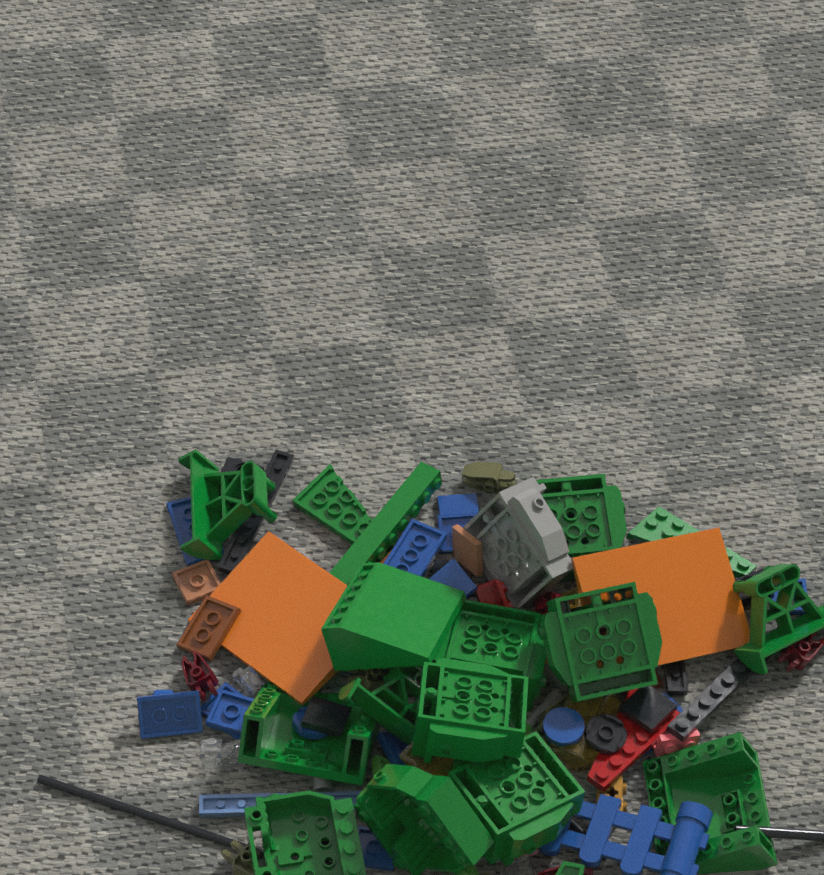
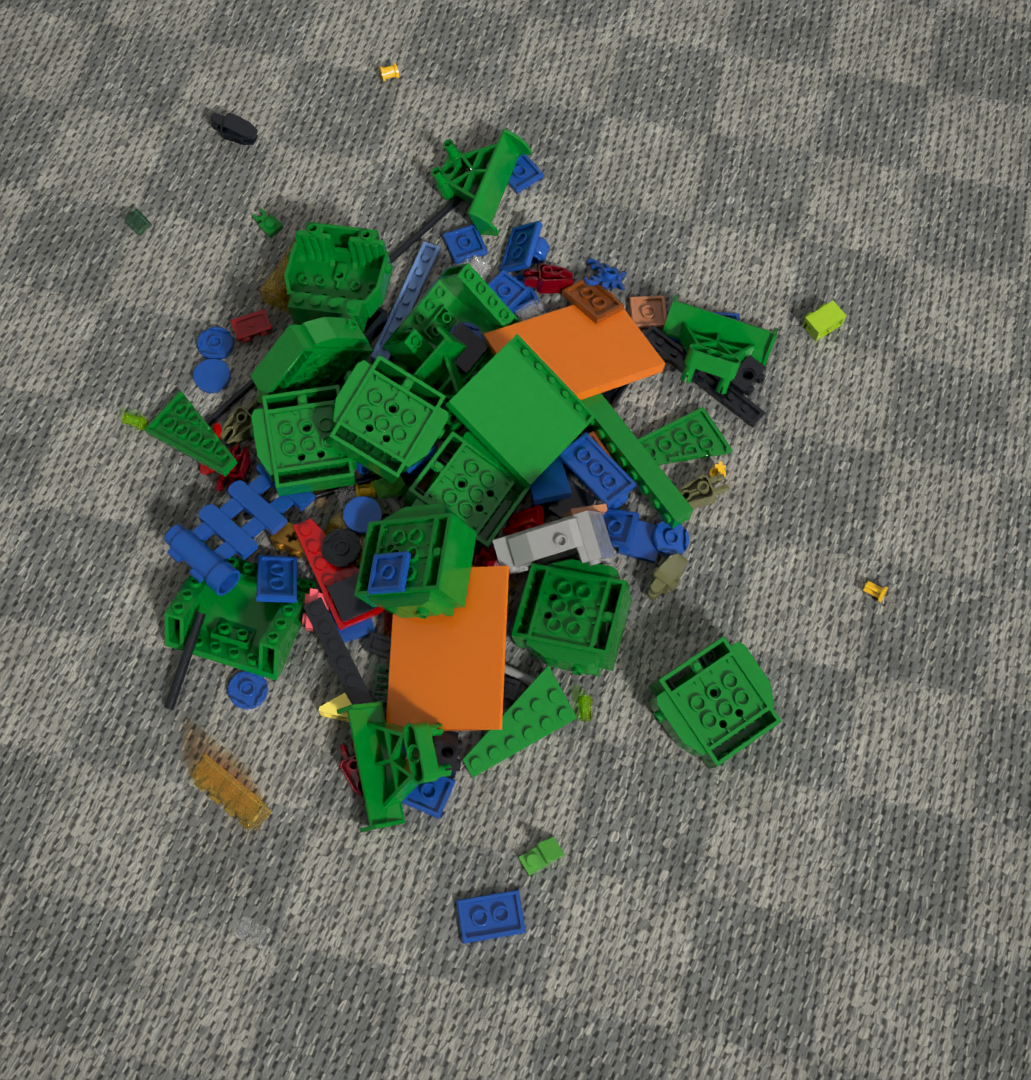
camera: 110 degrees right, 15 degrees up
(61, 758) = (524, 174): none -> blue tile
(78, 816) = (493, 180): none -> green piece
(146, 430) = (824, 320): none -> lime hinge
(173, 625) = (606, 276): none -> blue animal
(181, 778) = (464, 243): none -> blue tile
(357, 472) = (717, 469): none -> yellow piece
(387, 474) = (701, 491): none -> olive hinge
(421, 324) = (875, 590): none -> yellow piece
(451, 488) = (668, 540): none -> blue tile
(592, 405) = (694, 715): none -> green piece
(629, 646) = (389, 573): none -> blue tile
(641, 505) = (585, 707): none -> clear neon green pin
(663, 783) = (277, 579): none -> blue tile
(704, 674) = (377, 676): none -> clear green slope
(754, 690) = (330, 708): none -> light yellow slope
(774, 782) = (247, 690): none -> blue tile
(789, 492) = (541, 856): none -> bright green slope

